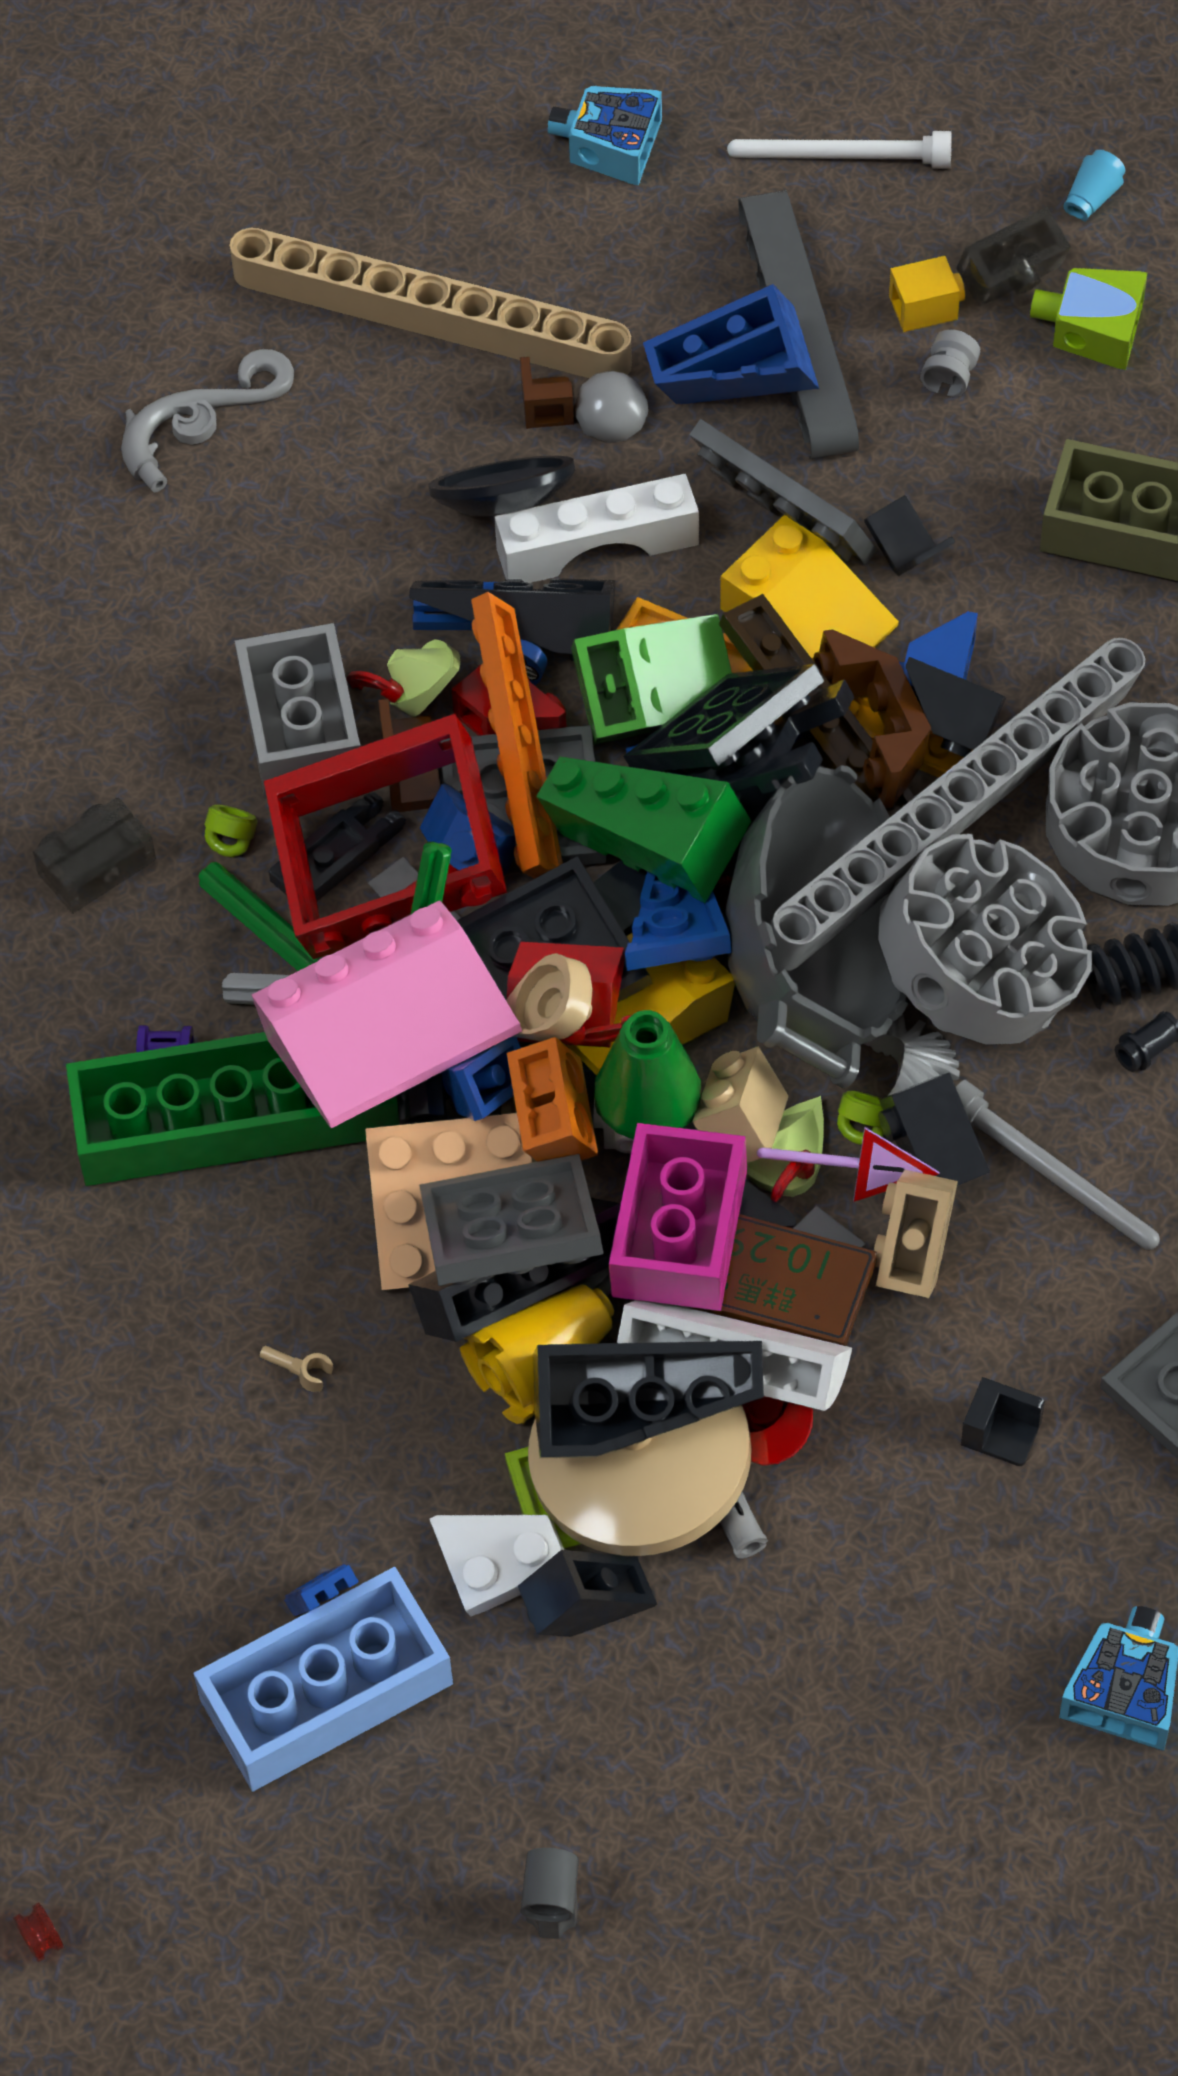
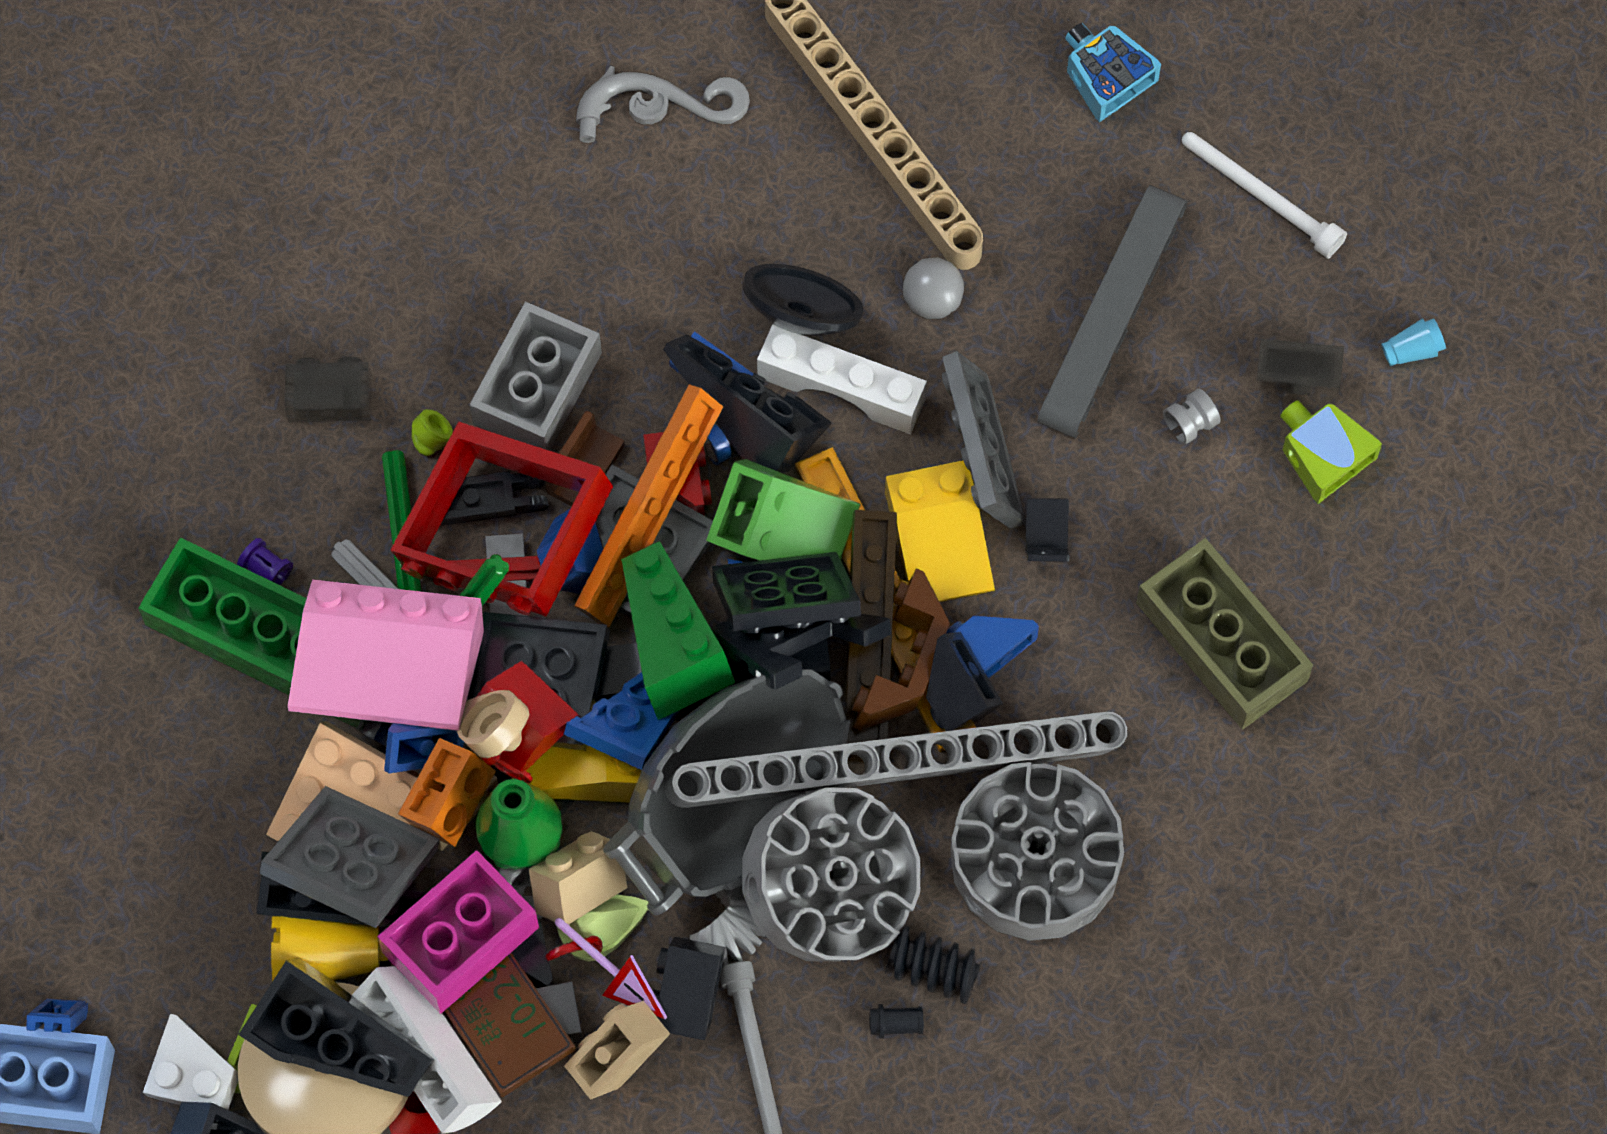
camera: 35 degrees right, 10 degrees up
(300, 1367) = (175, 845): tan hand -> none
(415, 676) = (634, 406): yellowish green piece -> none
(545, 400) = (894, 248): reddish brown panel -> none
(734, 352) = (1039, 309): blue wedge -> none
(861, 1109) = (662, 931): lime tile -> none
(925, 293) = (1220, 349): yellow brick -> none

